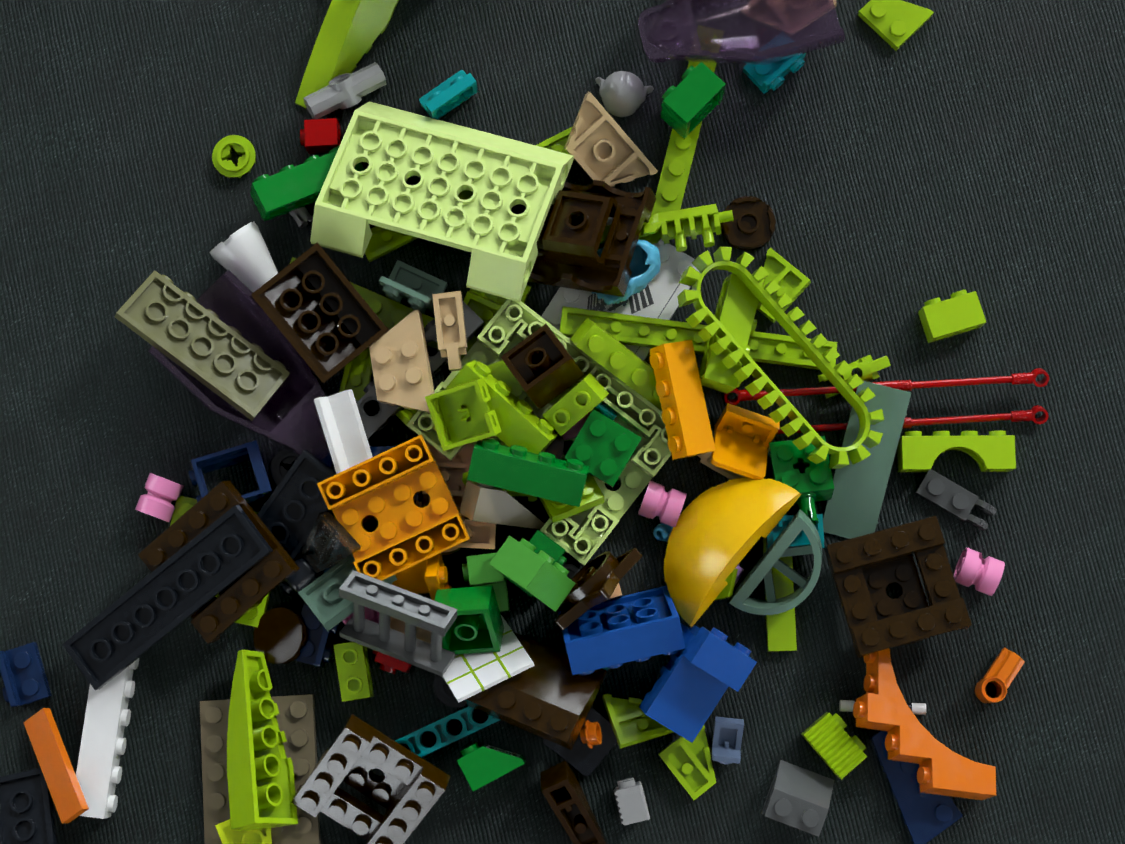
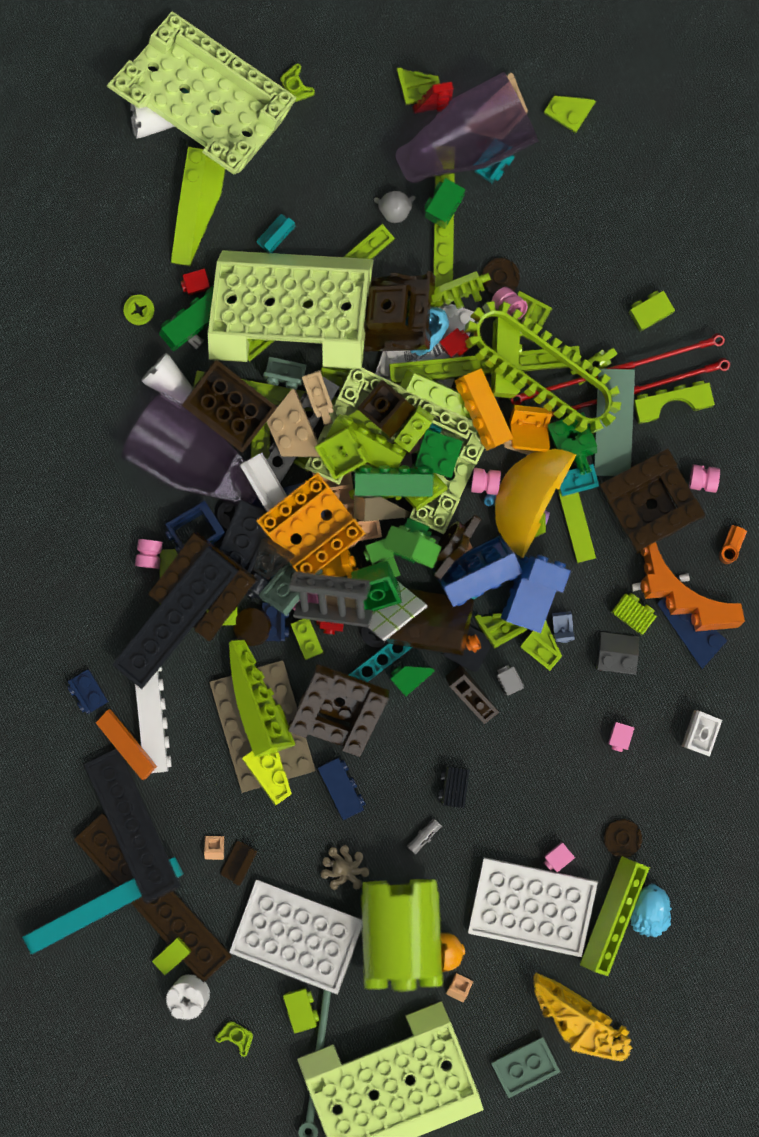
camera: 20 degrees left, 5 degrees up
(203, 344) = (156, 445): olive bracket -> none
(345, 91) = (204, 247): light grey piece -> none
(604, 147) = (392, 248): tan wing -> none
(662, 298) = (454, 343): none -> red brick
(761, 256) = (507, 295): none -> bright pink wheel
(762, 569) = (565, 501): sand green window -> none
(953, 498) = (678, 433): dark grey hinge -> none

